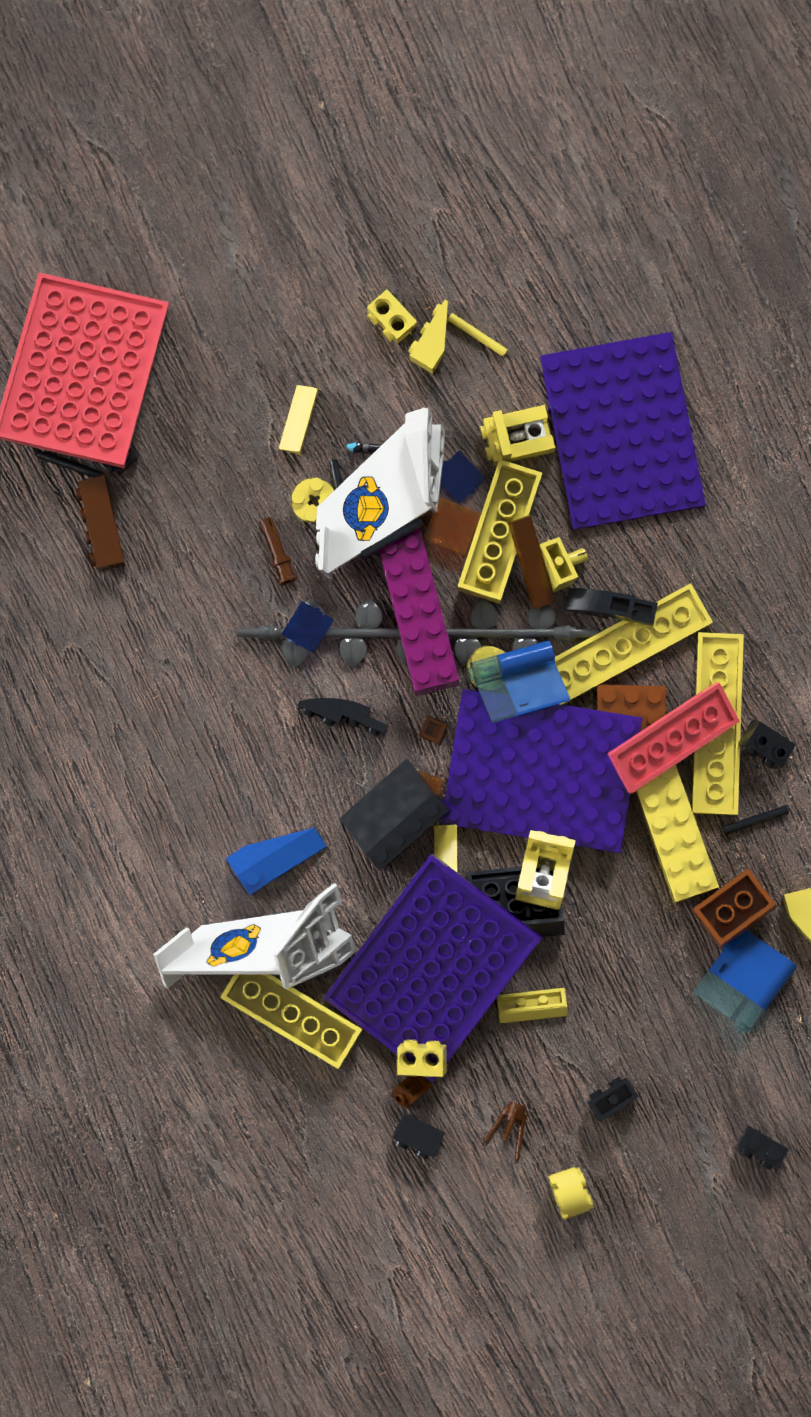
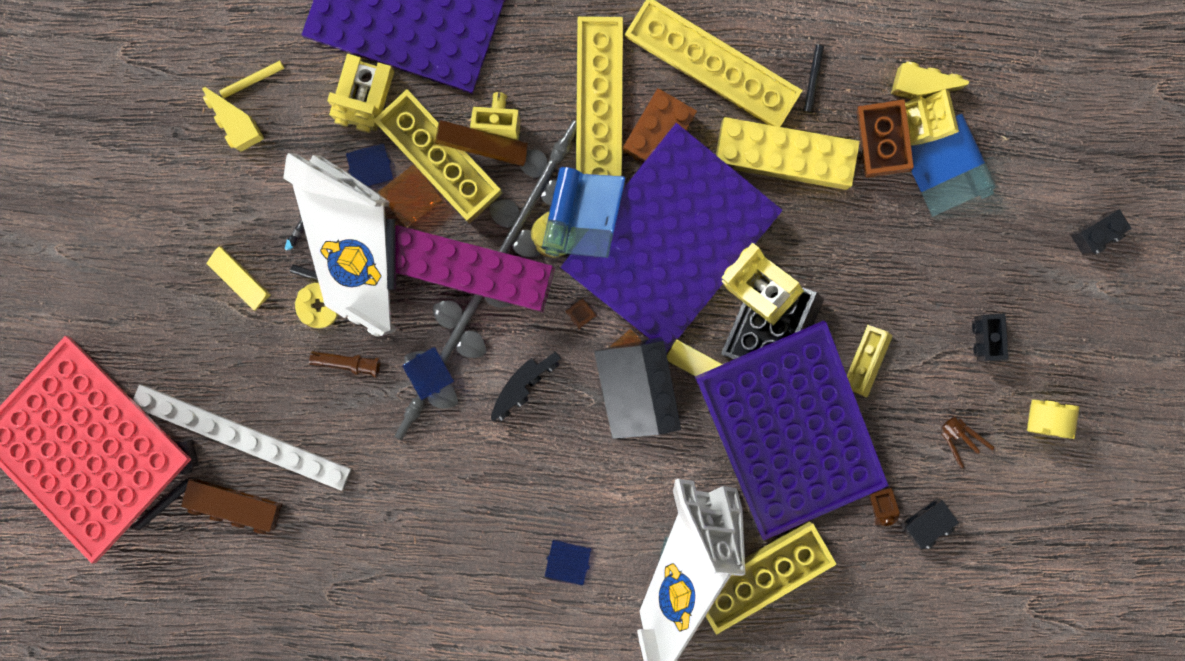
camera: 70 degrees left, 5 degrees up
(163, 500) = (242, 437): none -> white plate
(210, 839) = (568, 562): none -> clear blue piece
(270, 859) = (615, 522): blue wedge -> none
(396, 313) = (191, 139): light yellow brick -> none
(422, 1065) = (873, 487): light yellow brick -> none
(611, 604) = (558, 96): black slope -> none
(673, 737) = (709, 105): coral plate -> none
(766, 744) = (756, 30): black brick -> none
(776, 938) = (931, 118): none -> light yellow slope

